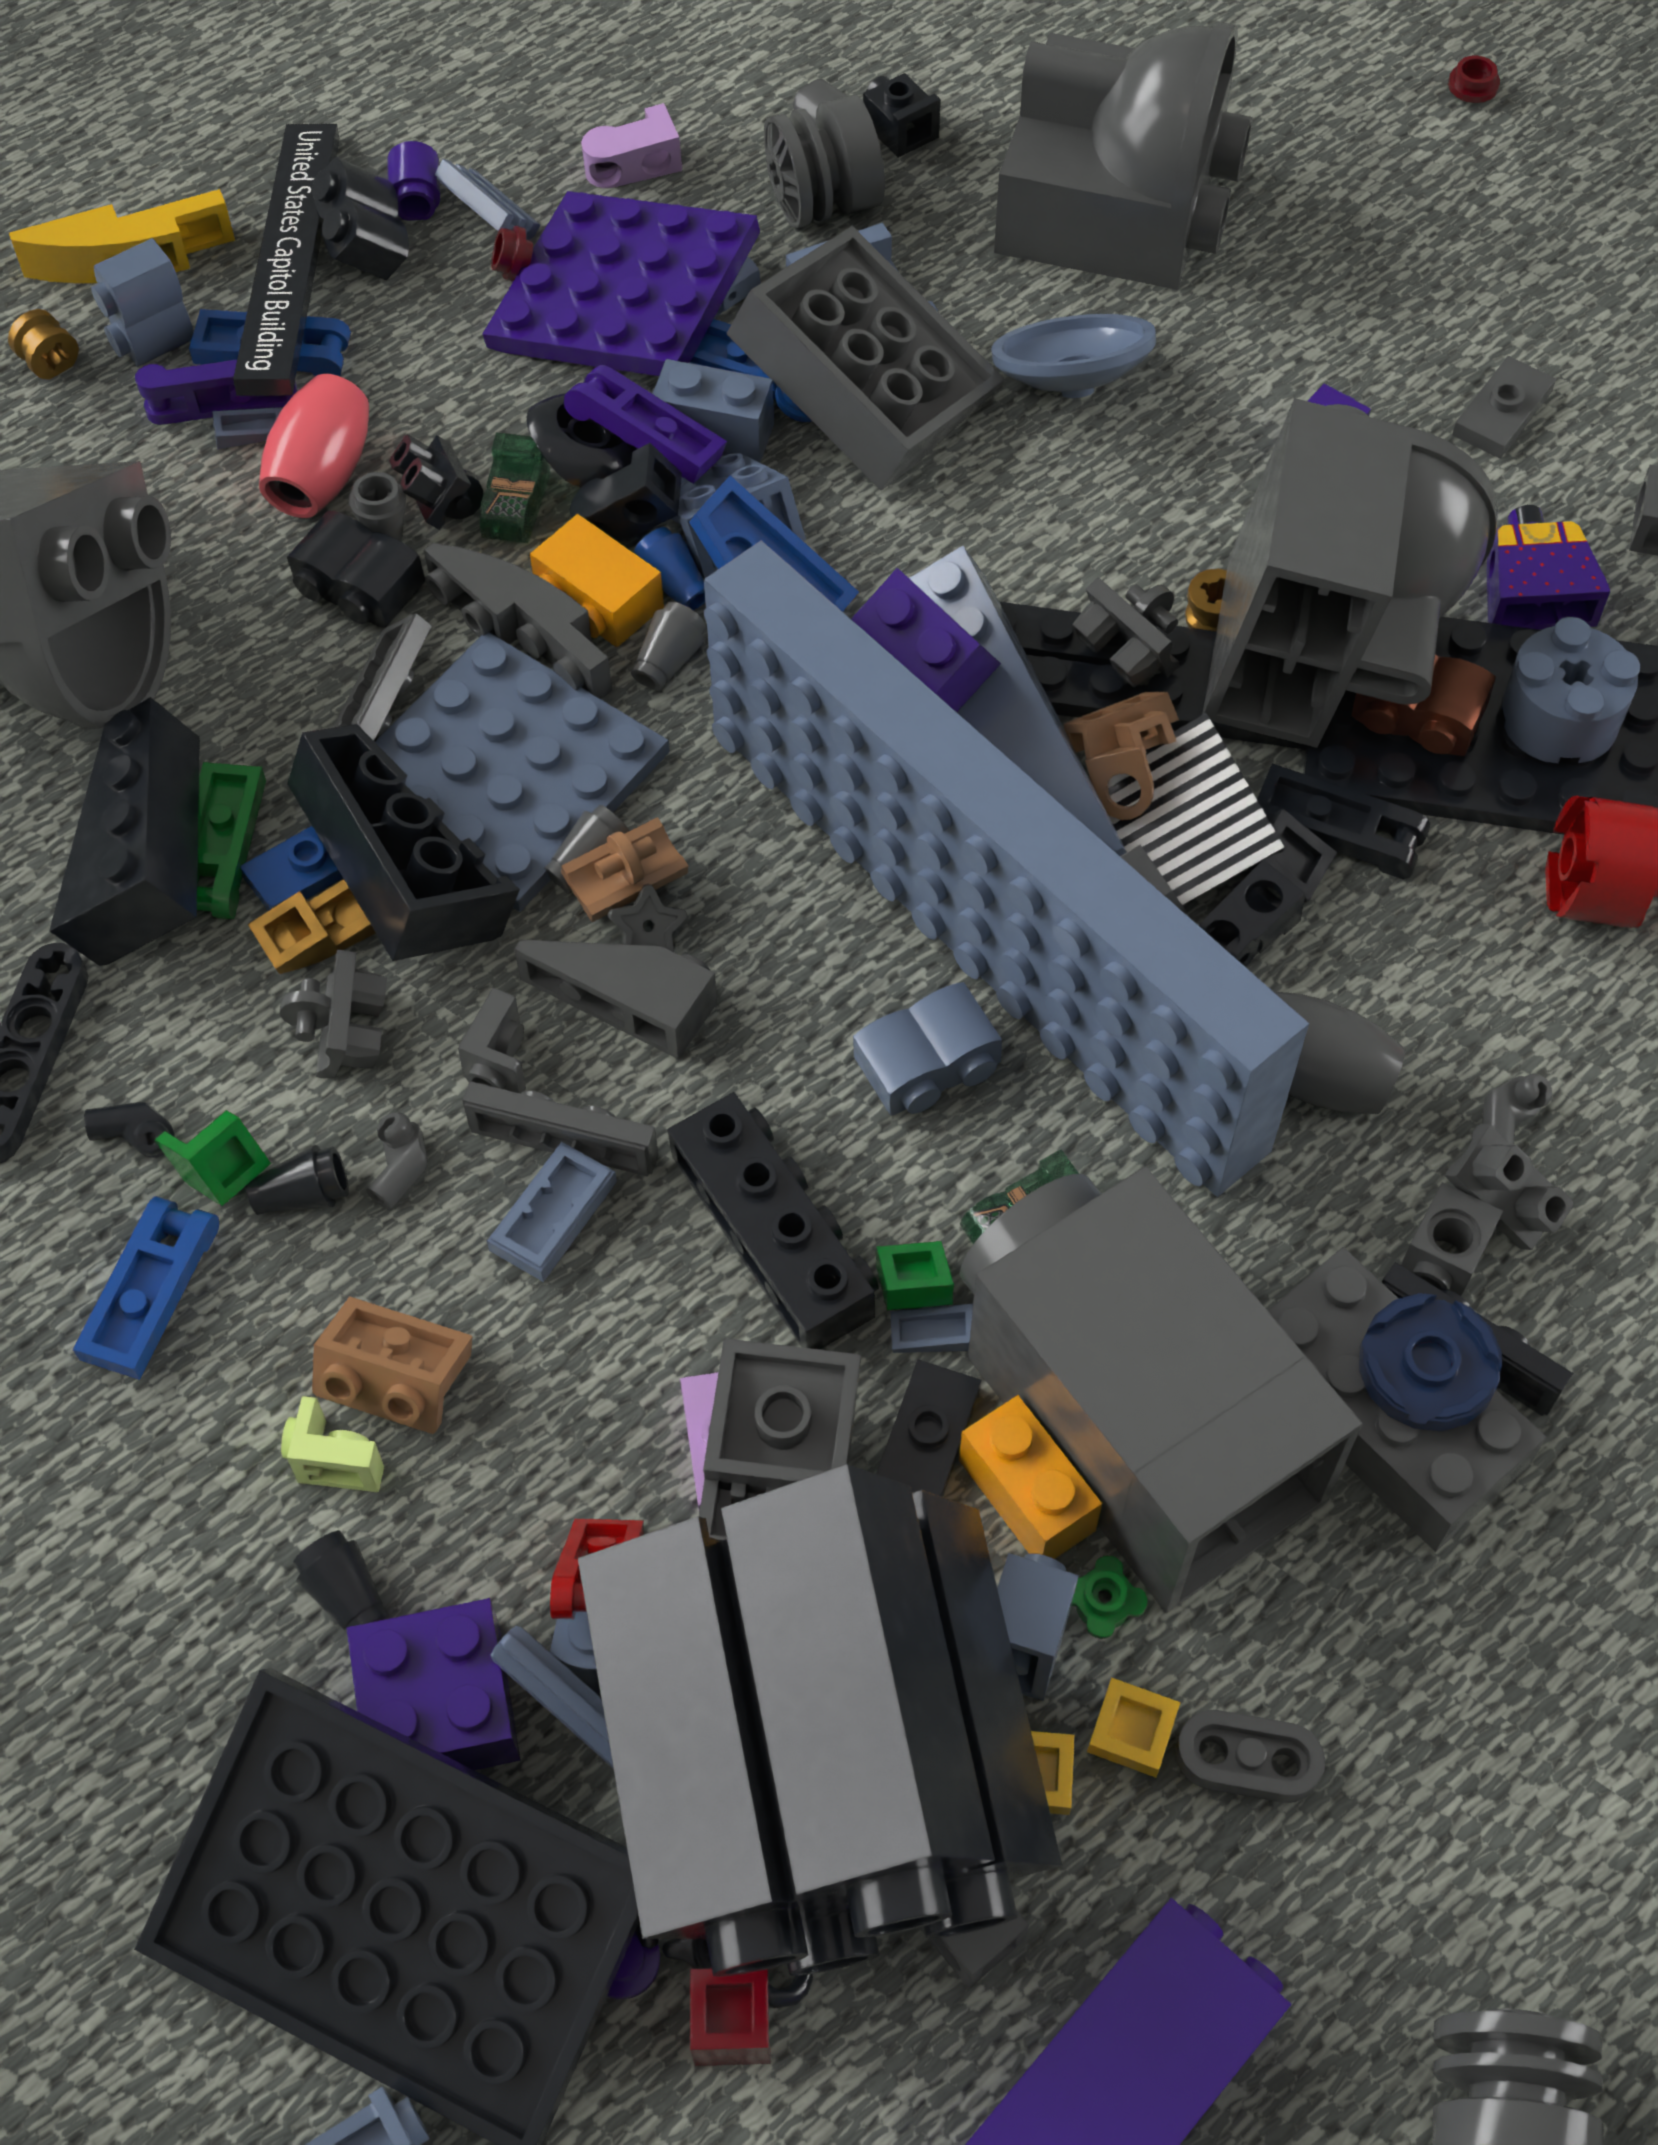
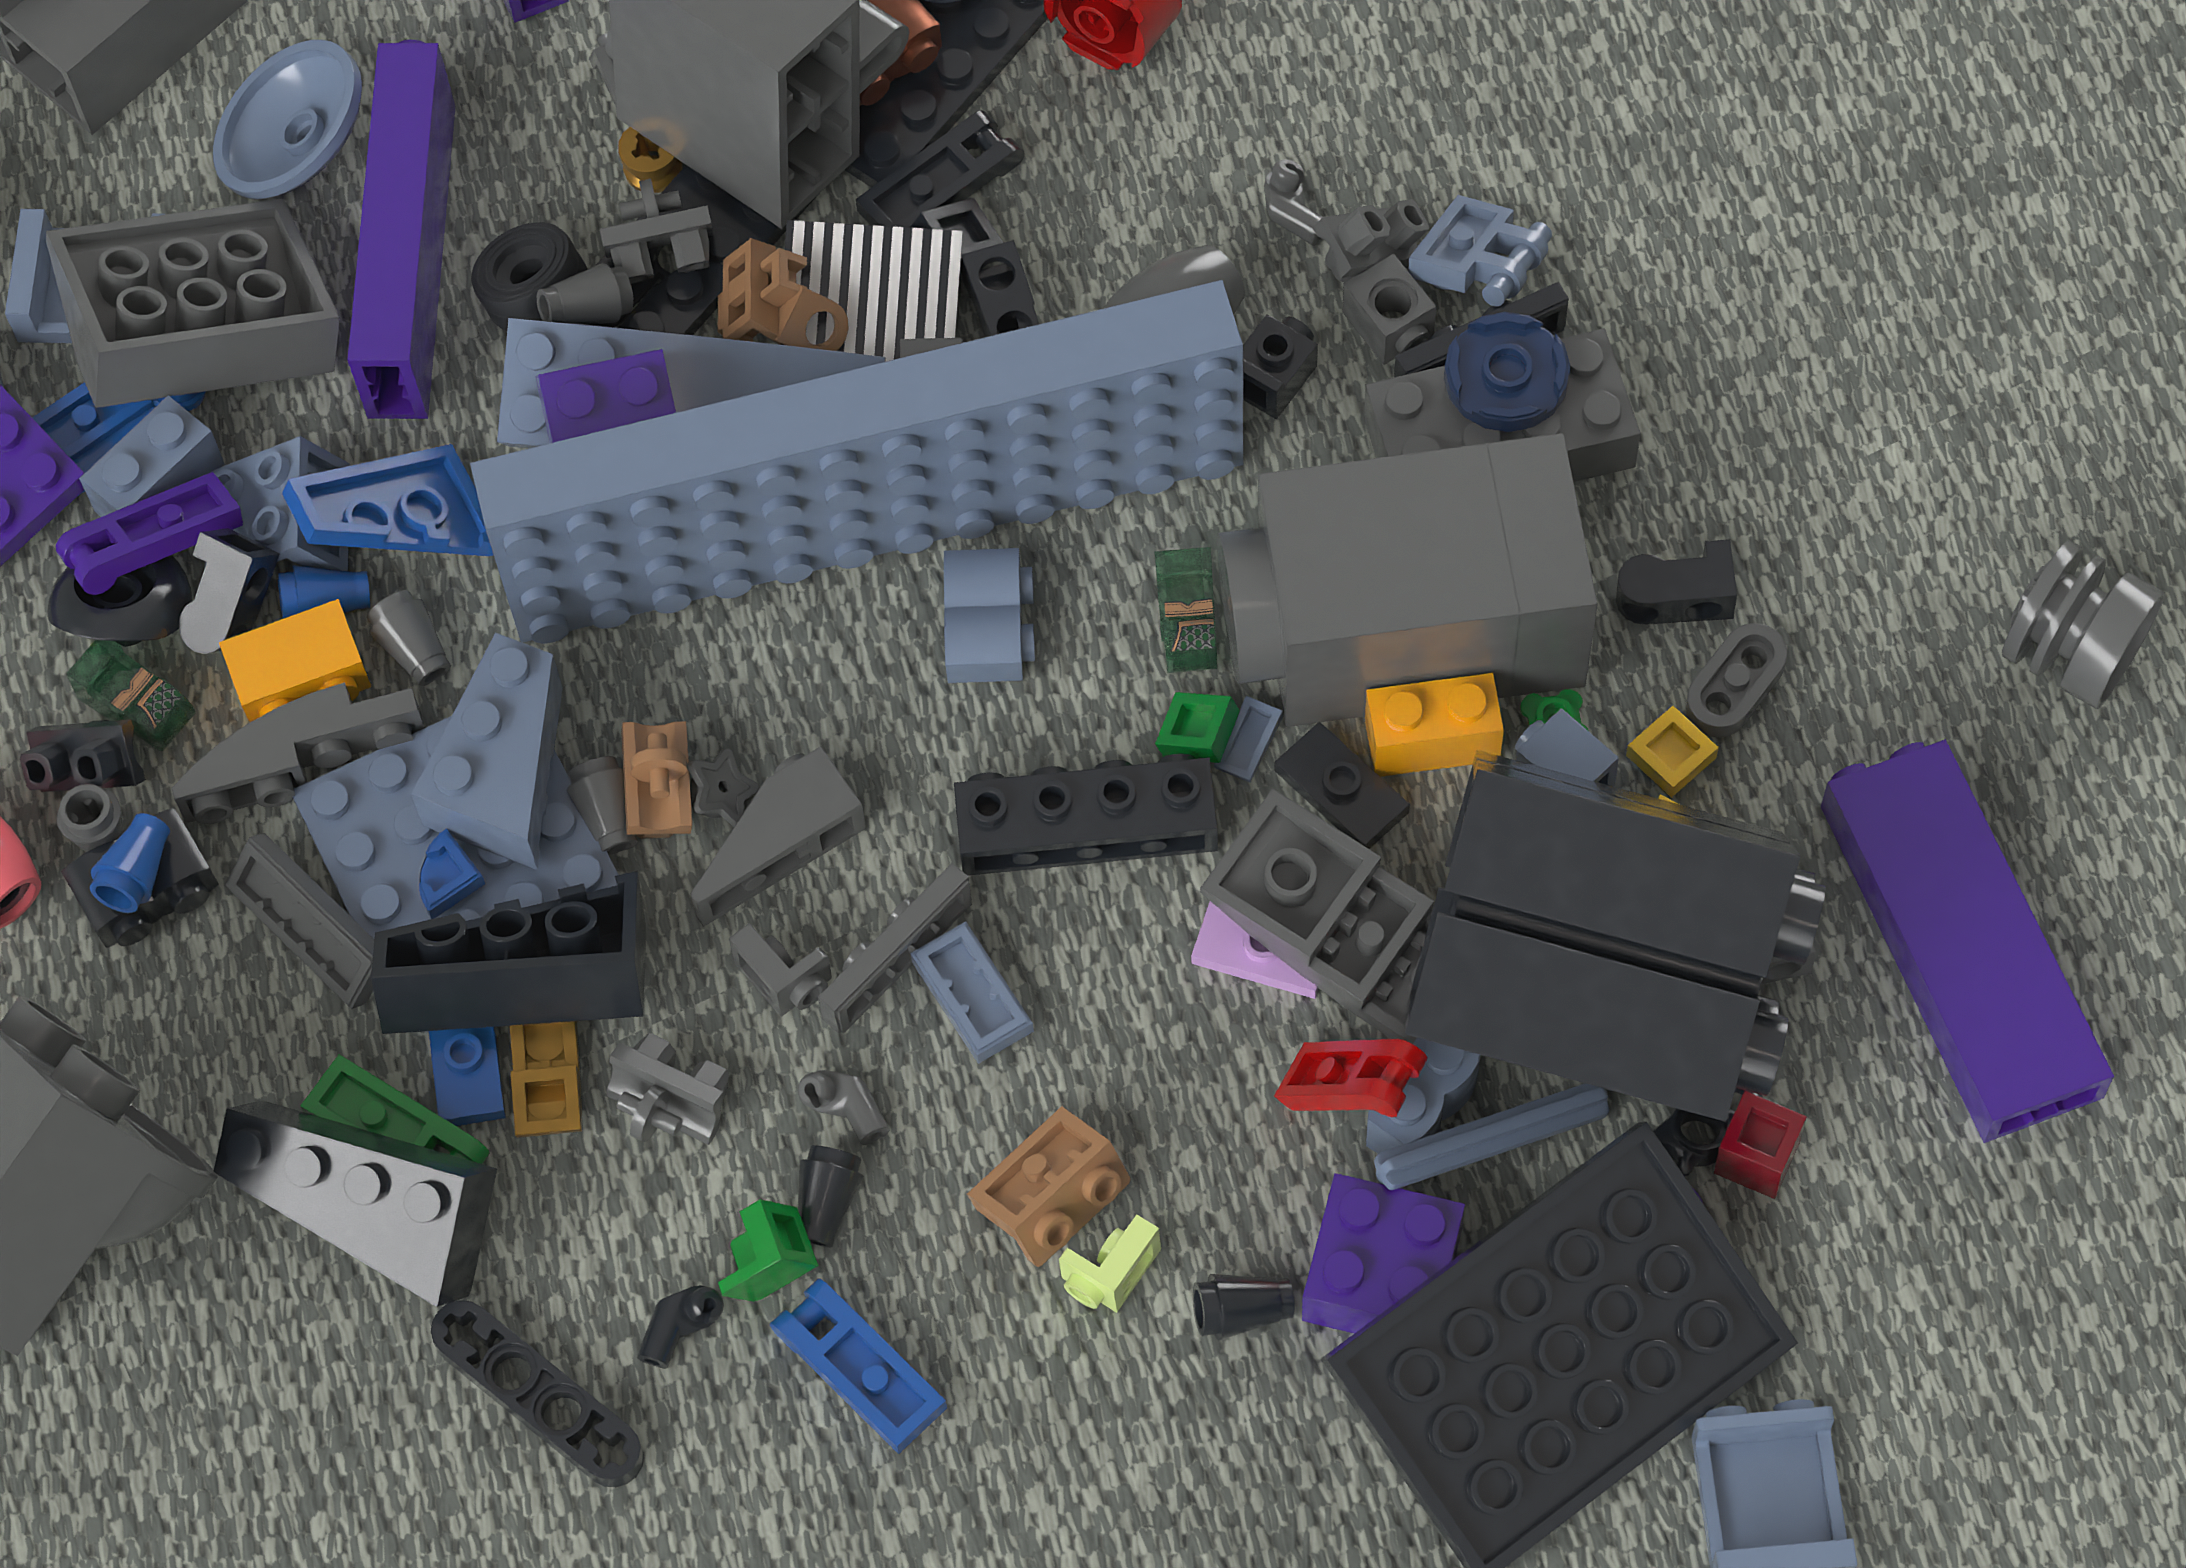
camera: 60 degrees left, 5 degrees up
(341, 540) = (130, 866): none -> blue cone
(454, 763) = (446, 875): none -> blue tile
(574, 737) = (496, 754): none -> sand blue wedge
(1020, 459) = (402, 231): none -> dark purple brick
(1036, 606) = (588, 297): none -> dark grey cone
(1040, 569) = (518, 266): none -> black tyre
(1318, 1653) = (1679, 588): none -> black leg
(1329, 1169) = (1274, 380): none -> black brick
(1561, 1274) = (1464, 249): none -> sand blue plate

